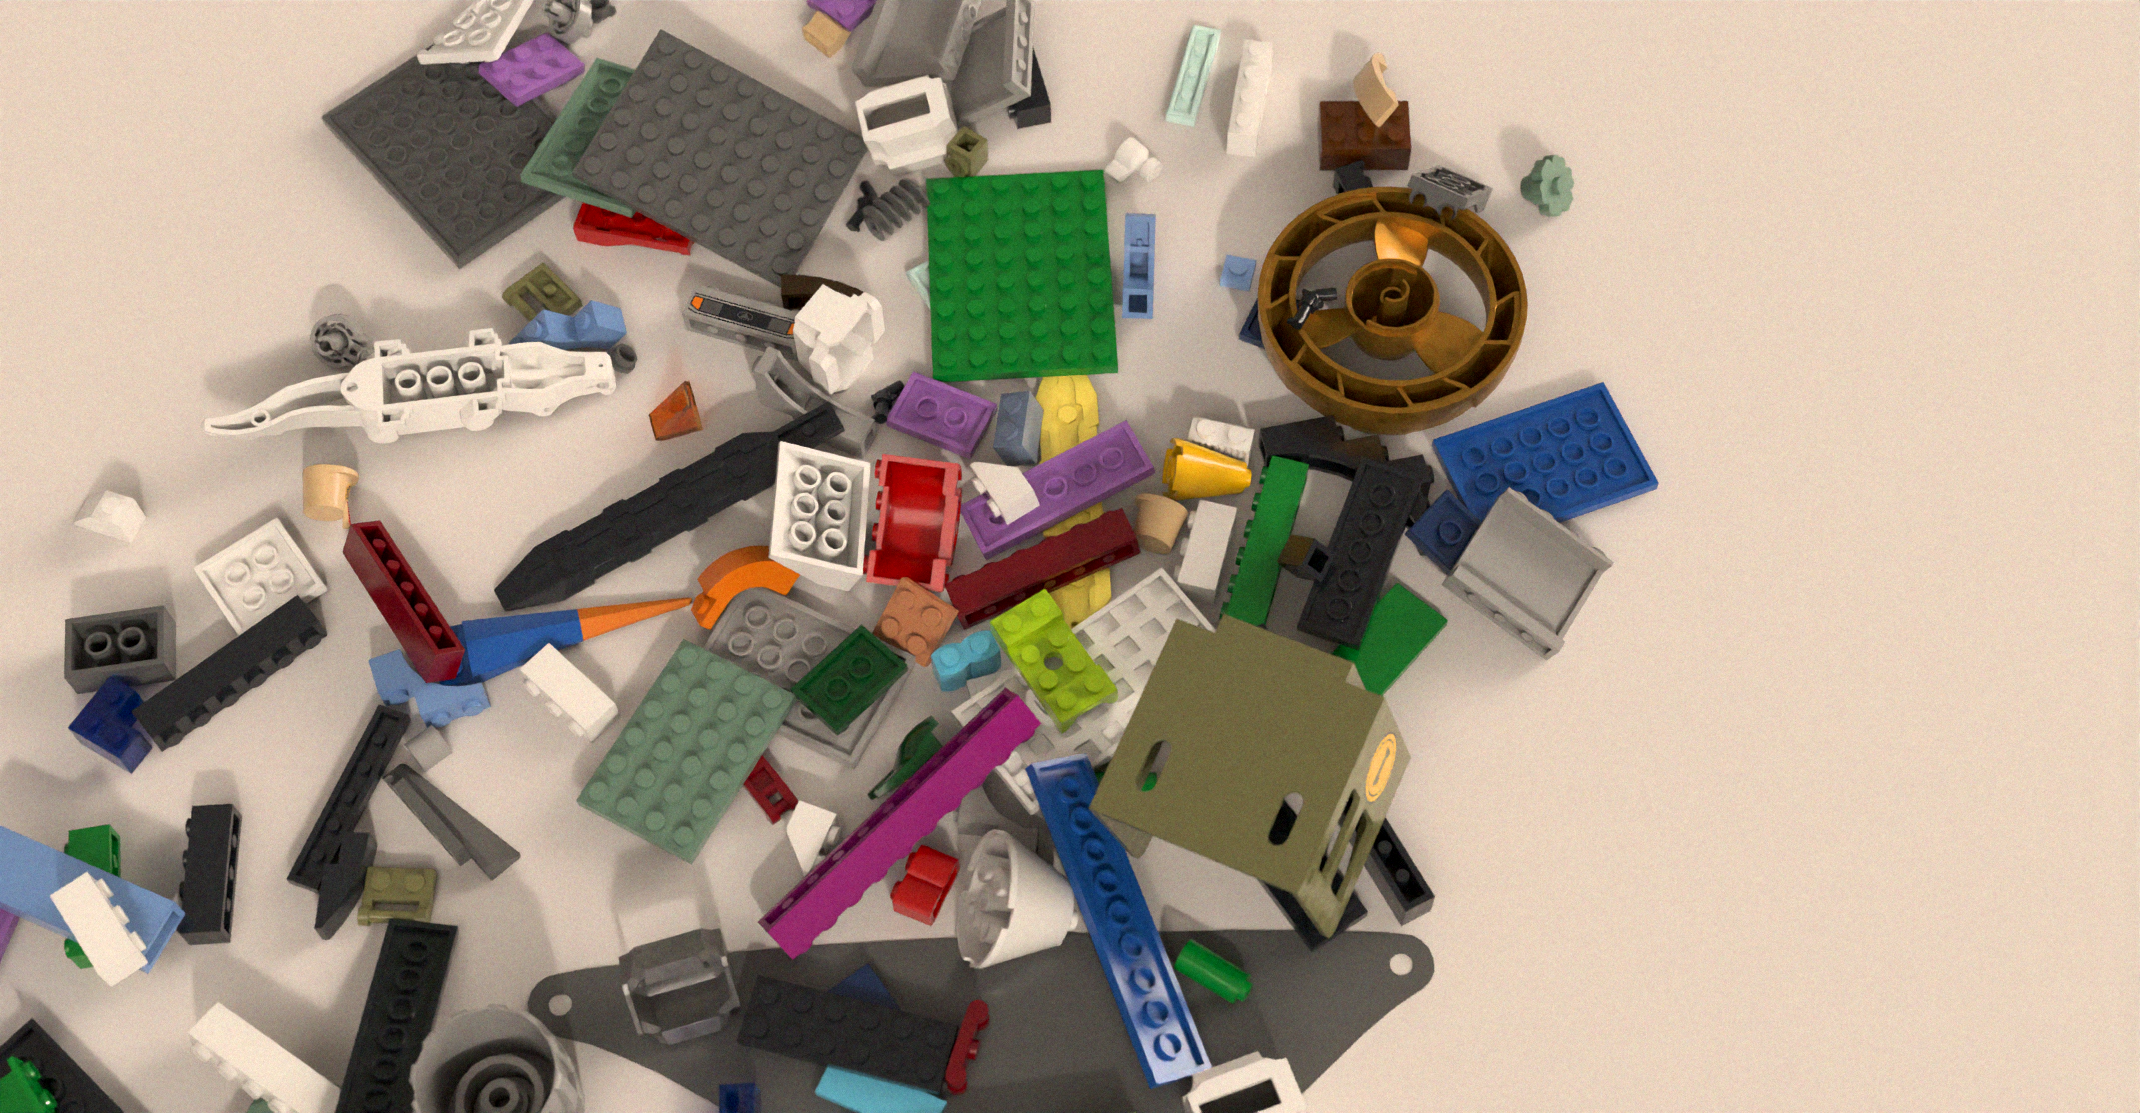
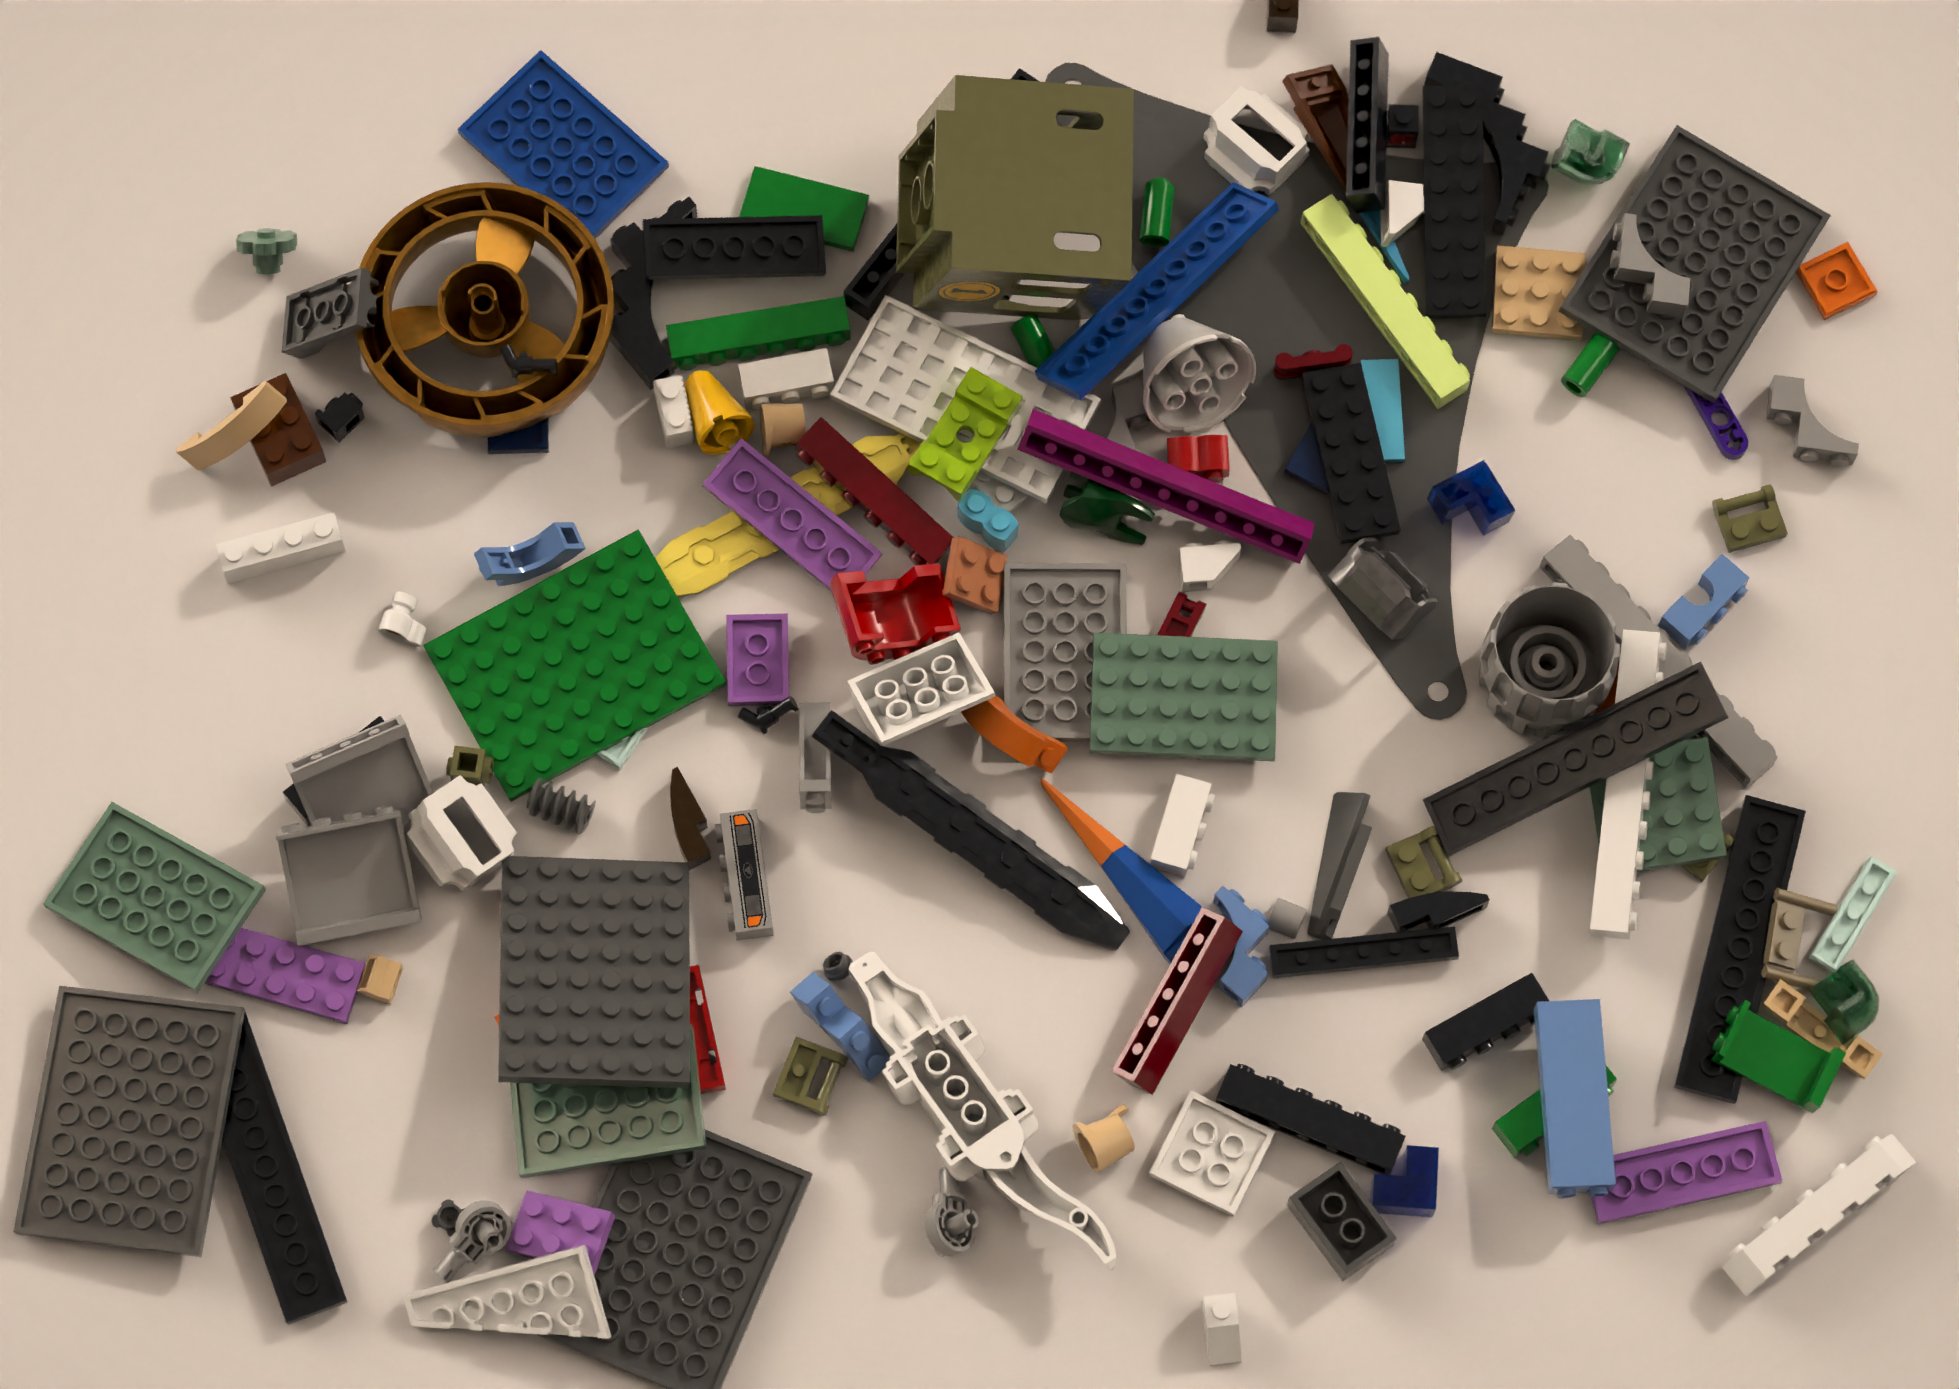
camera: 120 degrees left, 10 degrees up
(100, 928) = (1593, 1034): white brick -> none
(676, 414) = (865, 889): clear orange slope -> none
(836, 337) = (741, 766): white piece -> none
(849, 679) = (1057, 597): dark green plate -> none
(869, 195) = (563, 839): black piece -> none
(1006, 488) = (818, 552): white slope -> none
(1018, 428) = (744, 582): sand blue brick -> none
(1193, 75) = (269, 617): light aqua tile -> none
(1238, 273) = (480, 480): light blue plate -> none
(1306, 558) = (765, 284): black brick -> none
(1444, 530) = (680, 186): dark blue tile -> none
(1526, 573) = (685, 117): light grey panel -> none

